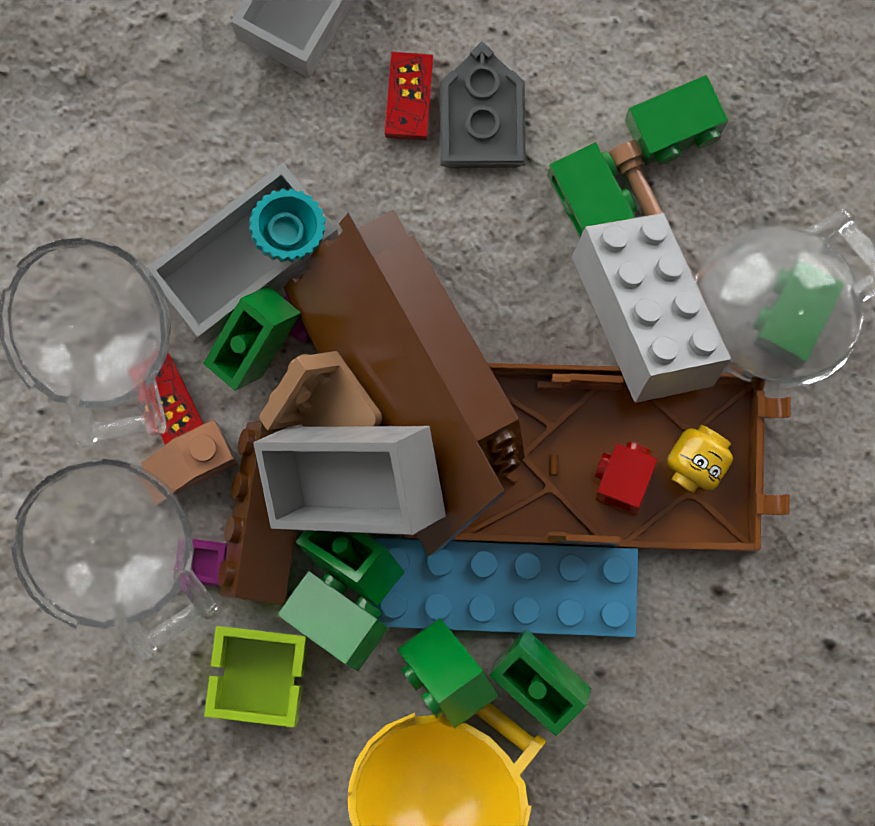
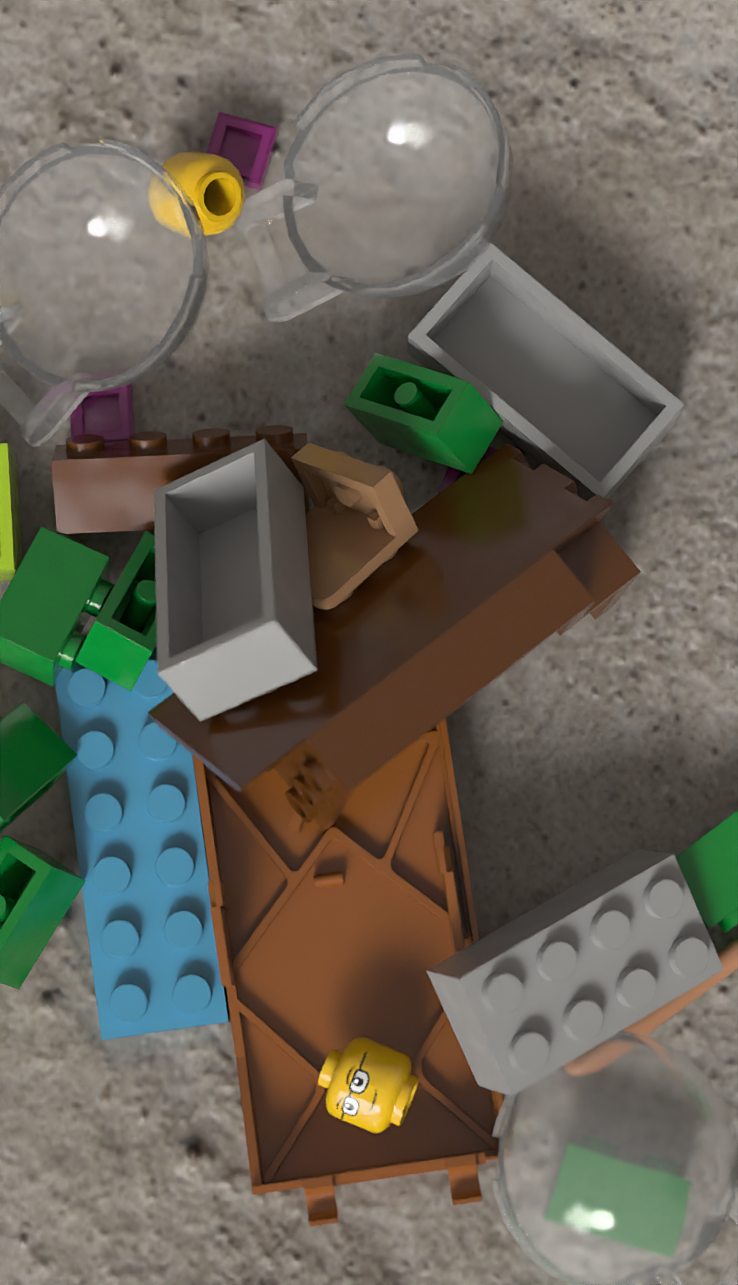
camera: 85 degrees right, 0 degrees up
(37, 434) = (246, 145): none -> magenta tile
(59, 452) = (212, 185): none -> yellow head
(176, 401) = (315, 333): red tile -> none
(192, 458) = (241, 367): nougat slope -> none
(287, 225) = (587, 425): teal hat -> none
(625, 476) = (325, 982): red brick -> none

